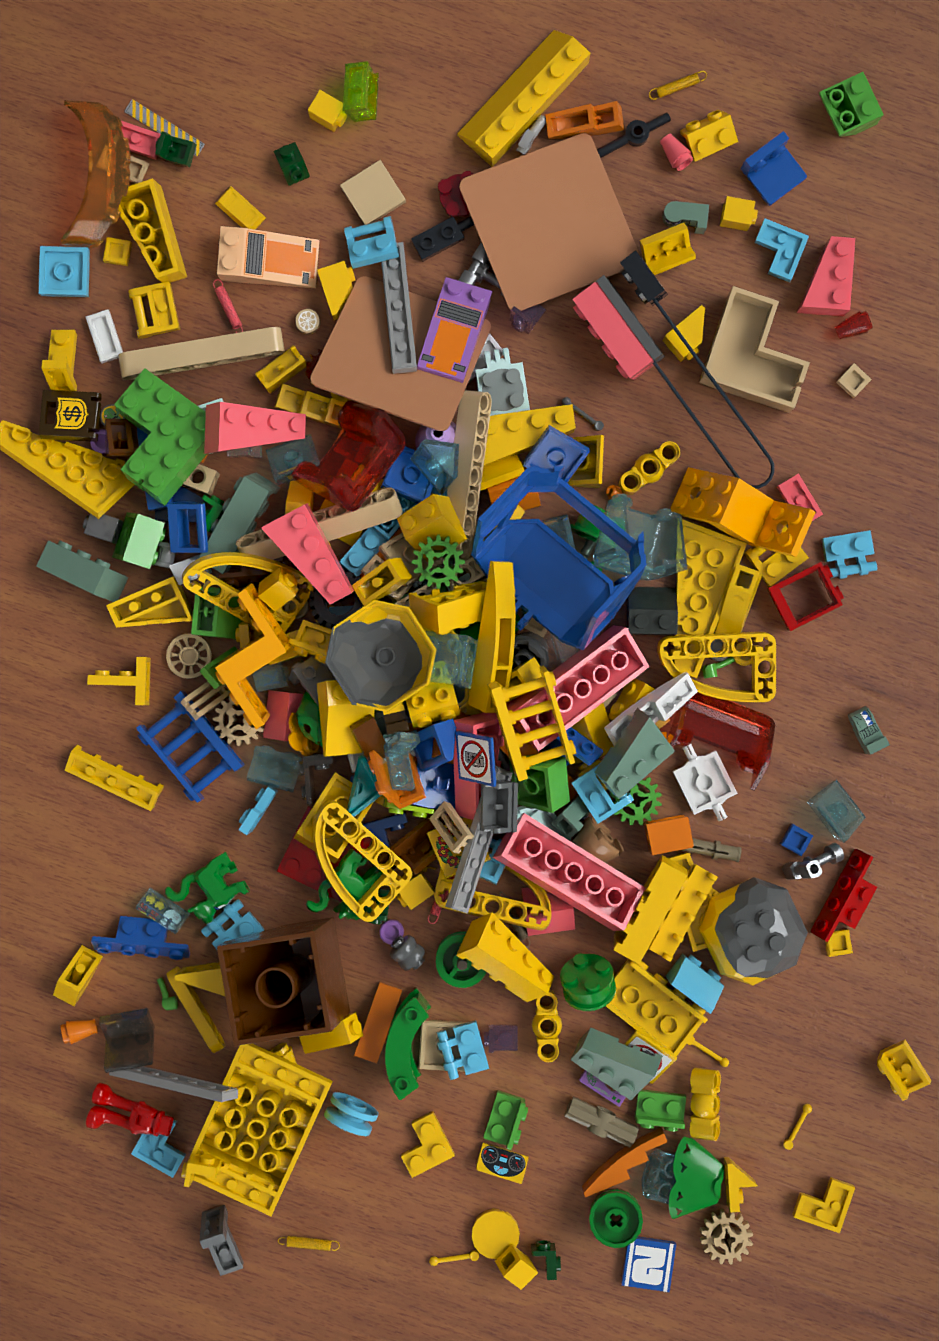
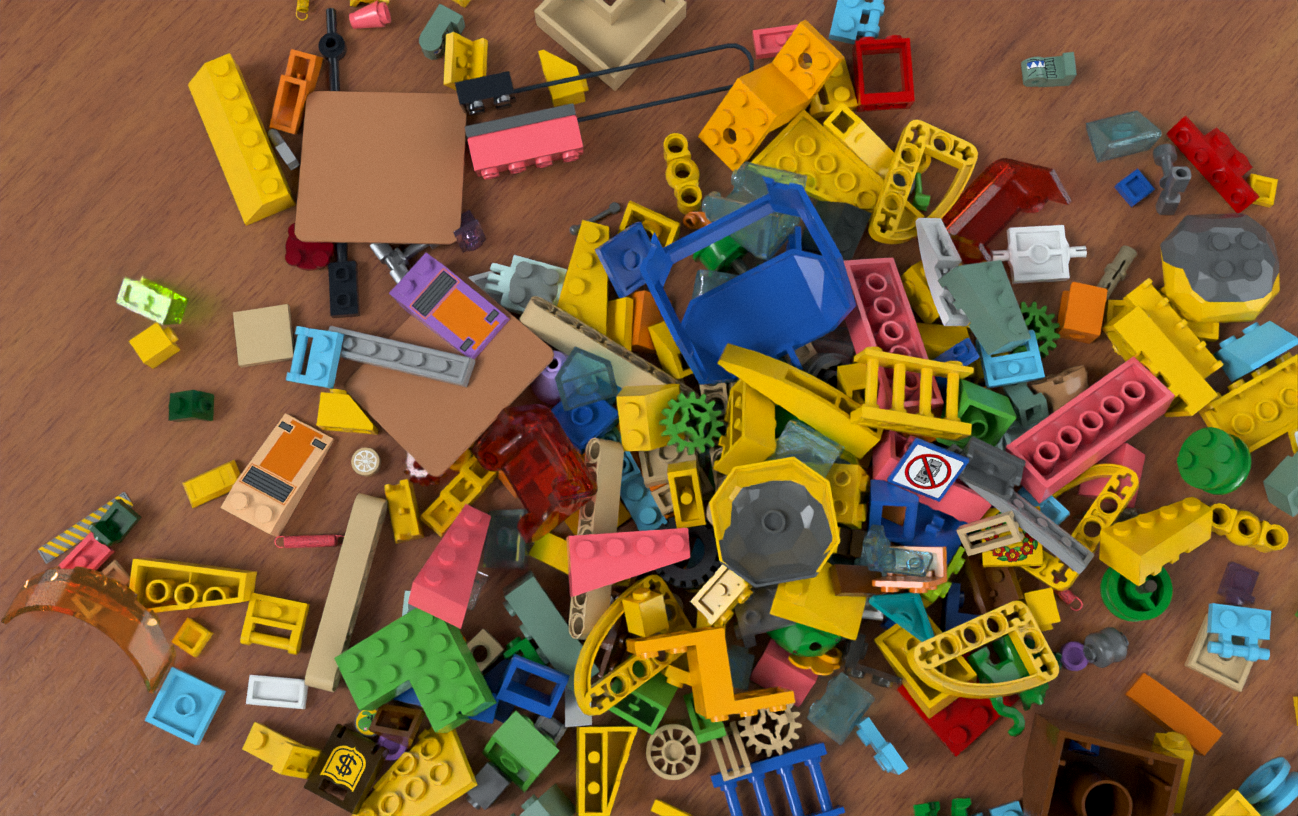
camera: 60 degrees left, 10 degrees down
(398, 1053) = (1191, 680): green fence -> none

